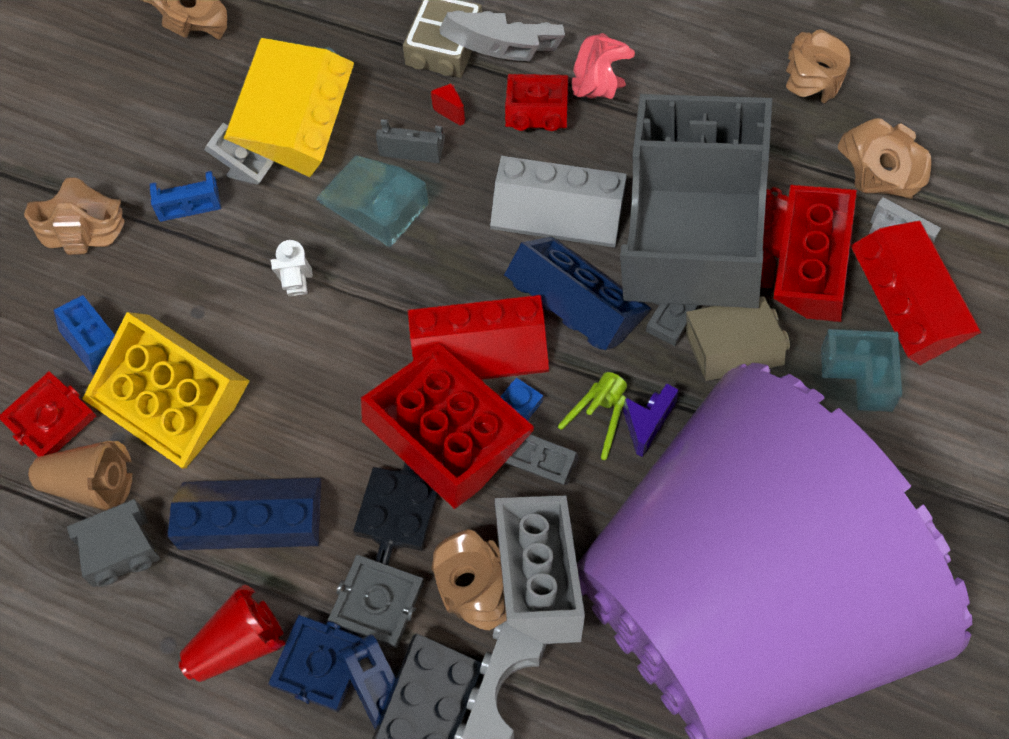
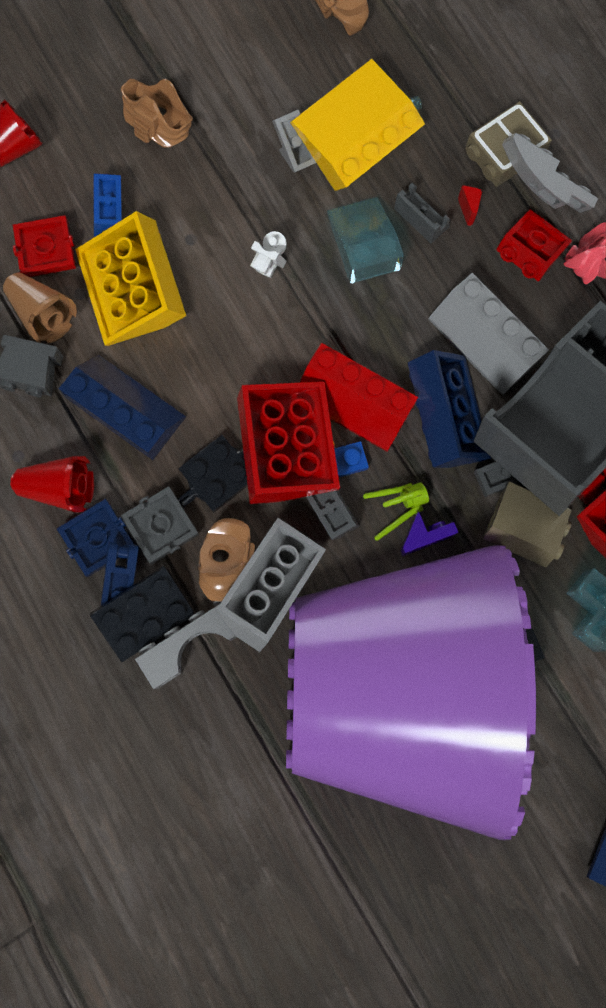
camera: 30 degrees right, 15 degrees up
(185, 199) = (238, 148): blue hinge -> none

